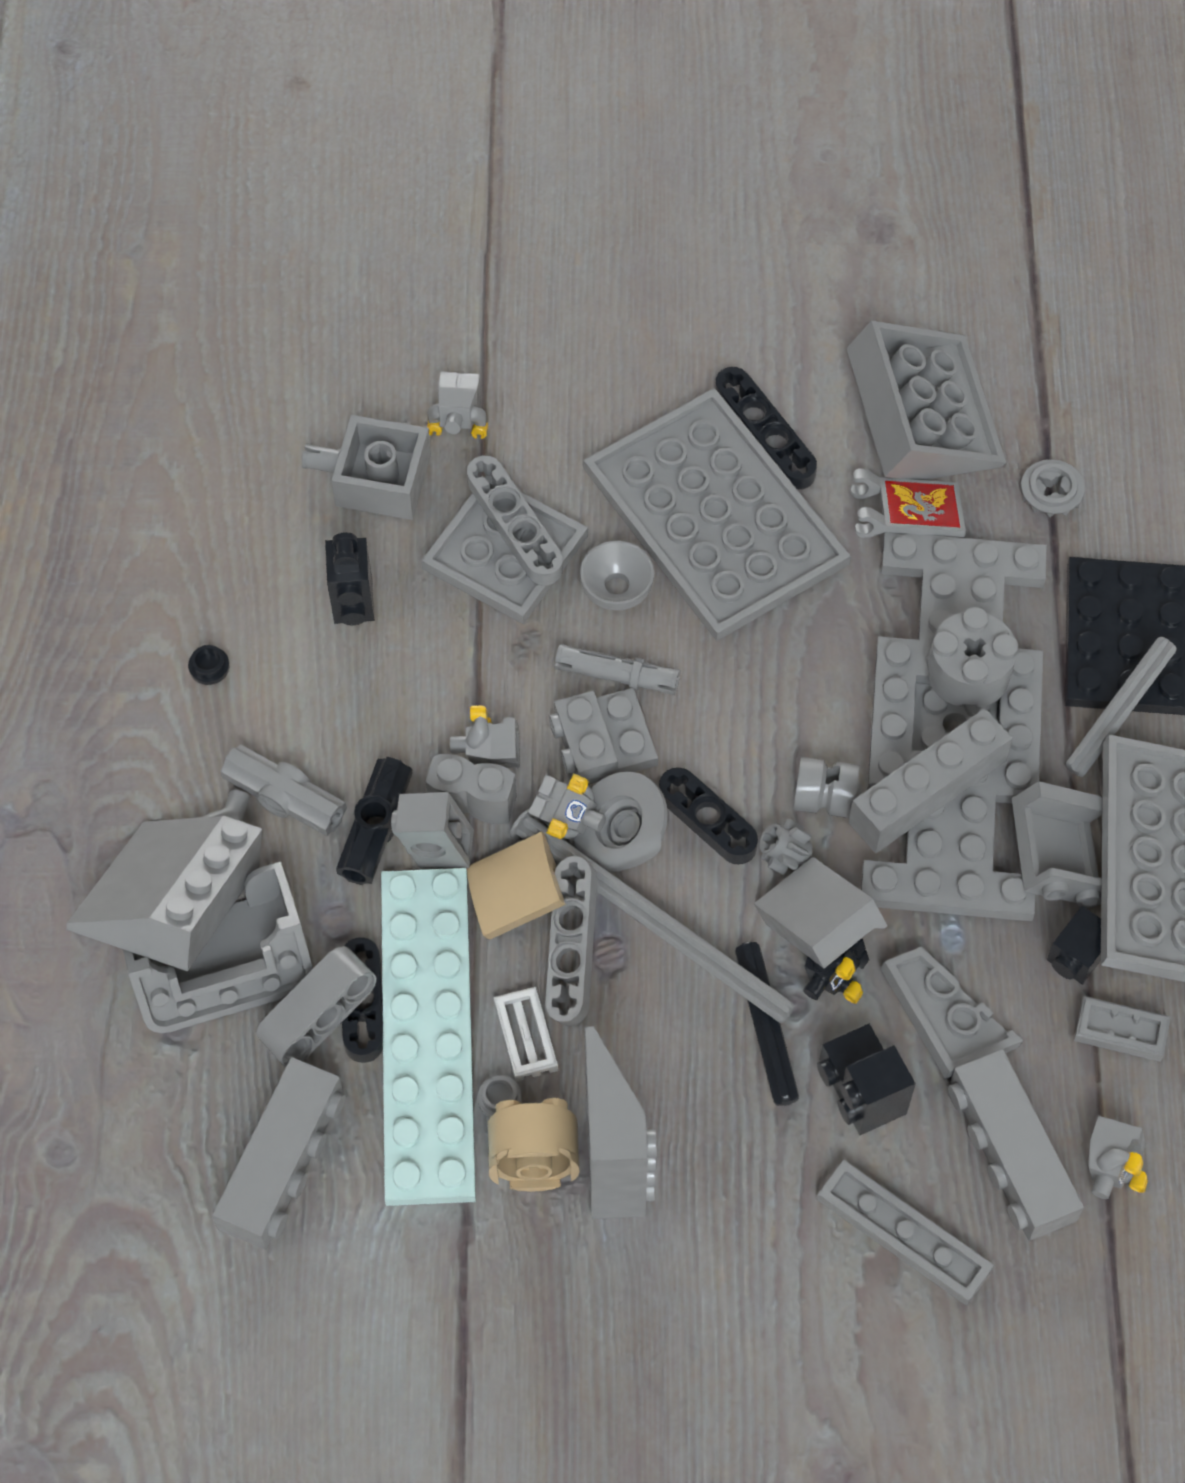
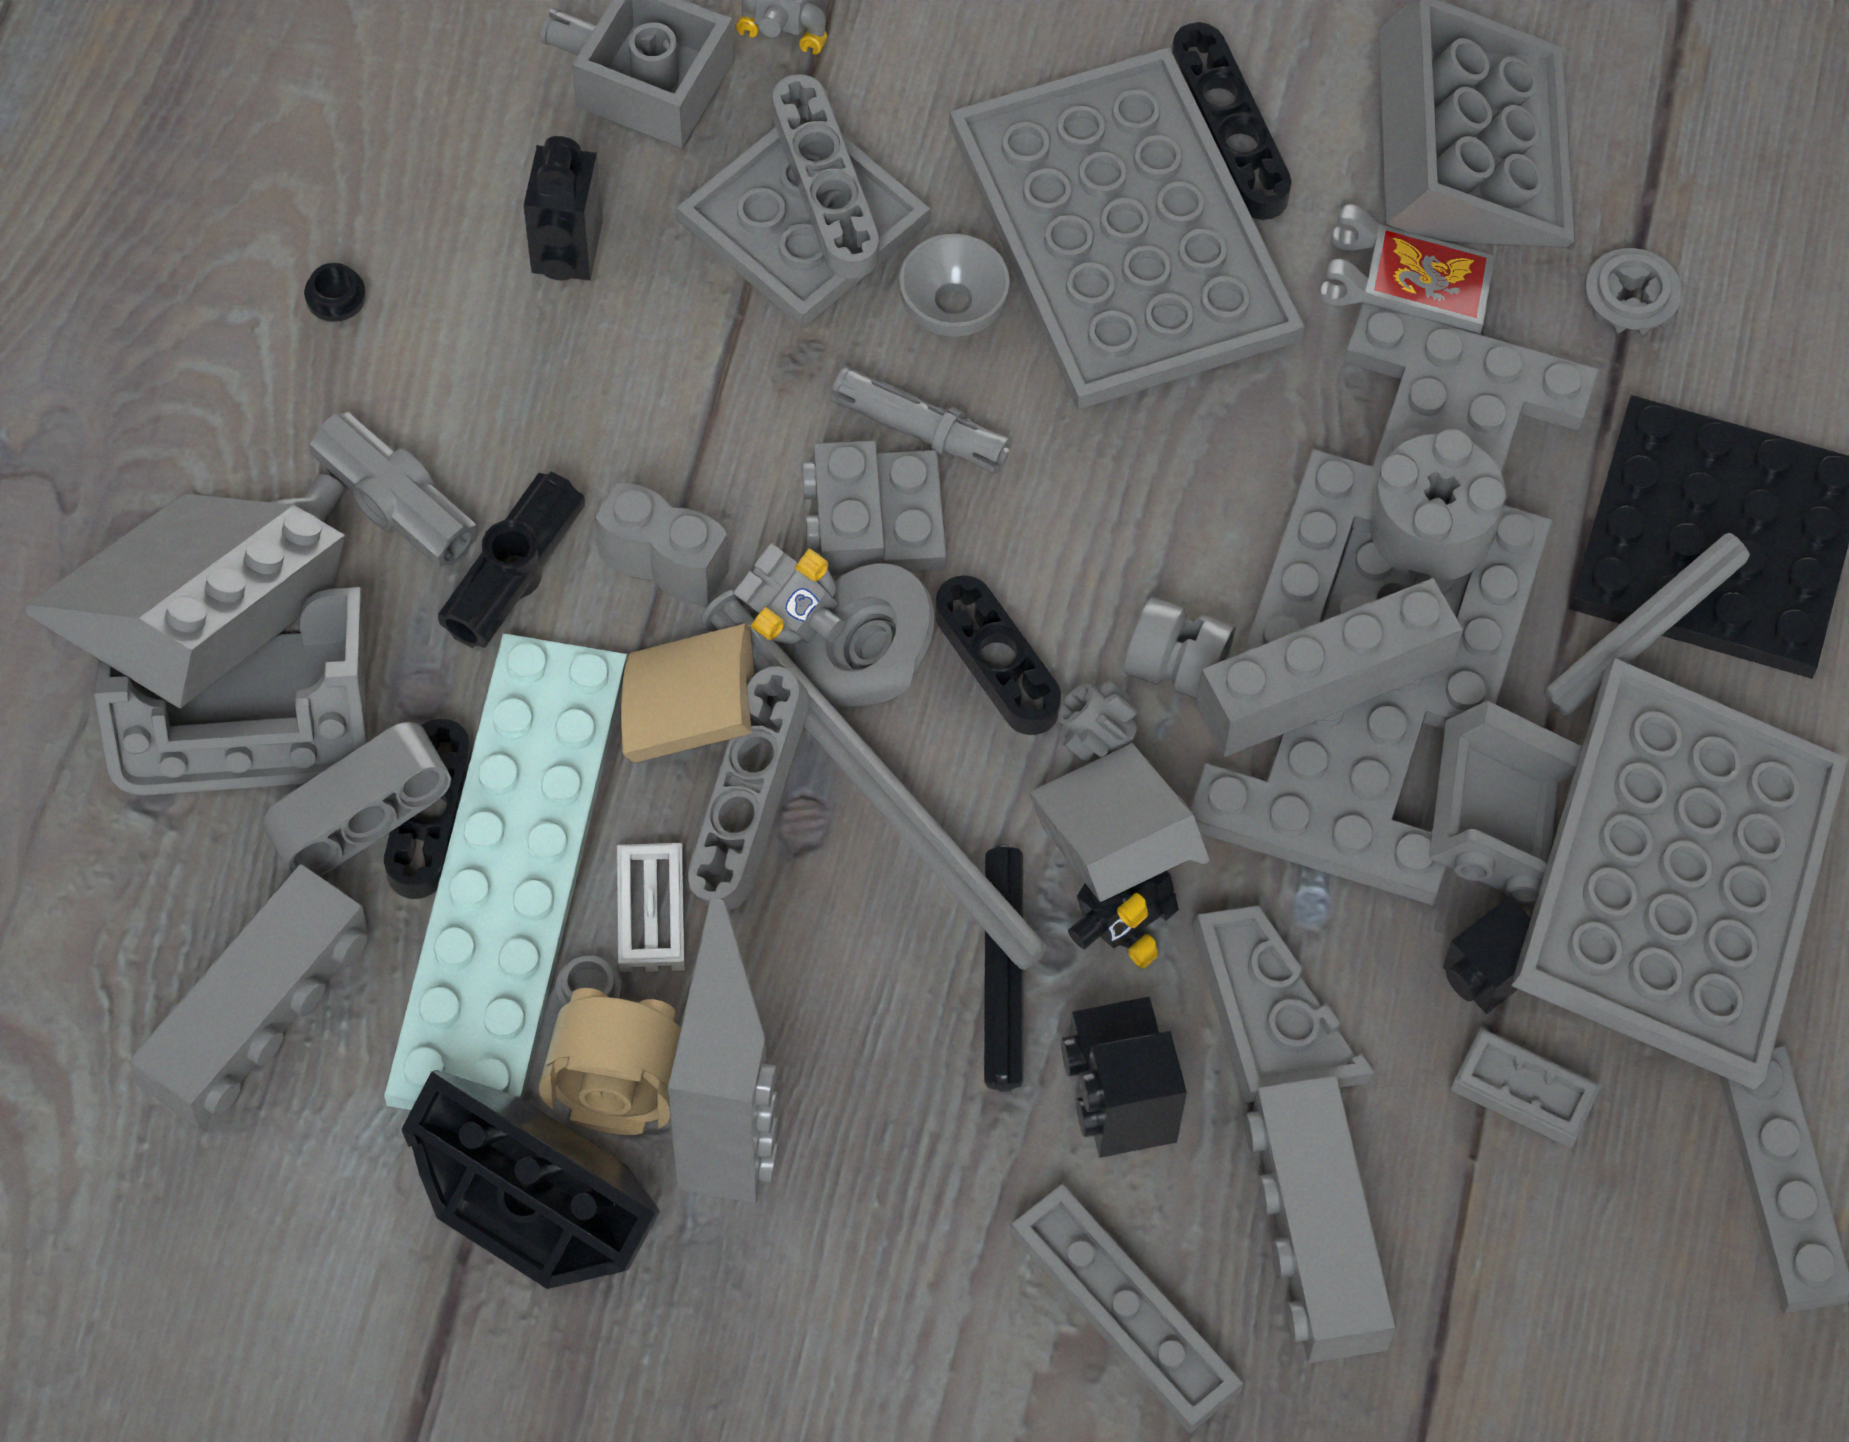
camera: 10 degrees right, 0 degrees up
(433, 830) = (589, 588): light grey brick -> none
(489, 741) = (706, 480): light grey piece -> none
(496, 1239) = (525, 1184): none -> black wedge
(1116, 1157) = (1464, 1268): light grey piece -> none

